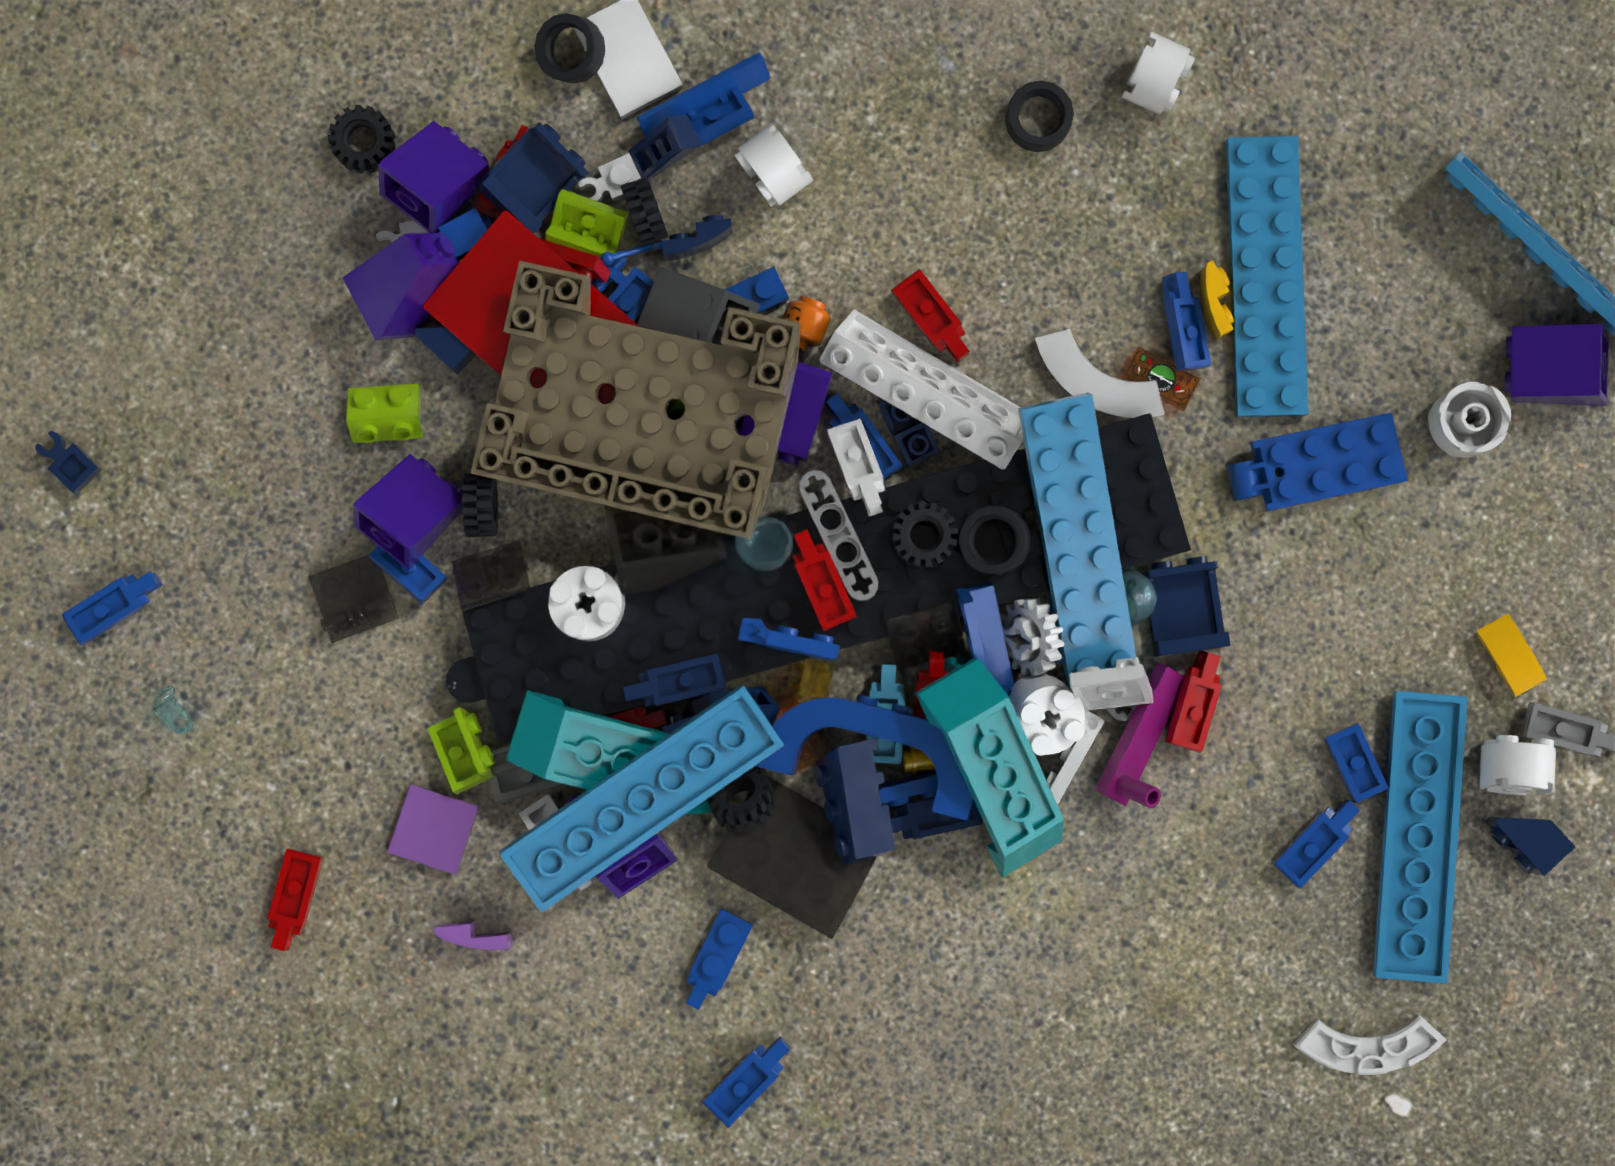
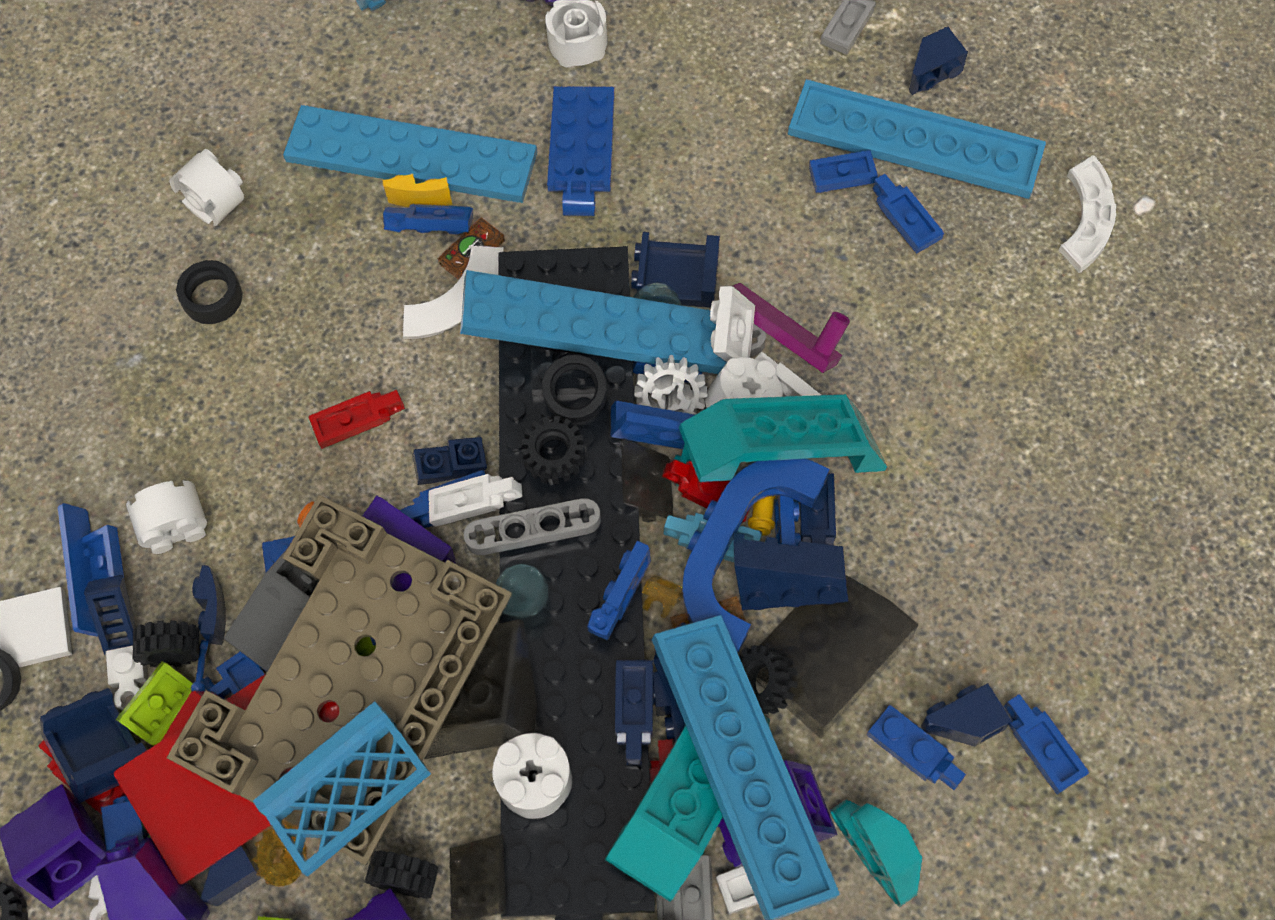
camera: 70 degrees left, 20 degrees down
(477, 396) = (276, 874): none -> clear yellow gear
(546, 409) = (328, 767): none -> dark azure fence
(608, 940) = (883, 848): none -> teal connector
(755, 1005) = (970, 718): none -> dark blue slope
(822, 582) = (572, 549): red hinge -> none
(925, 388) = (421, 428): white bracket -> none
(1195, 703) = (763, 279): red hinge -> none
(1511, 655) = (781, 41): yellow slope -> none
(1517, 767) = (872, 52): white brick -> none

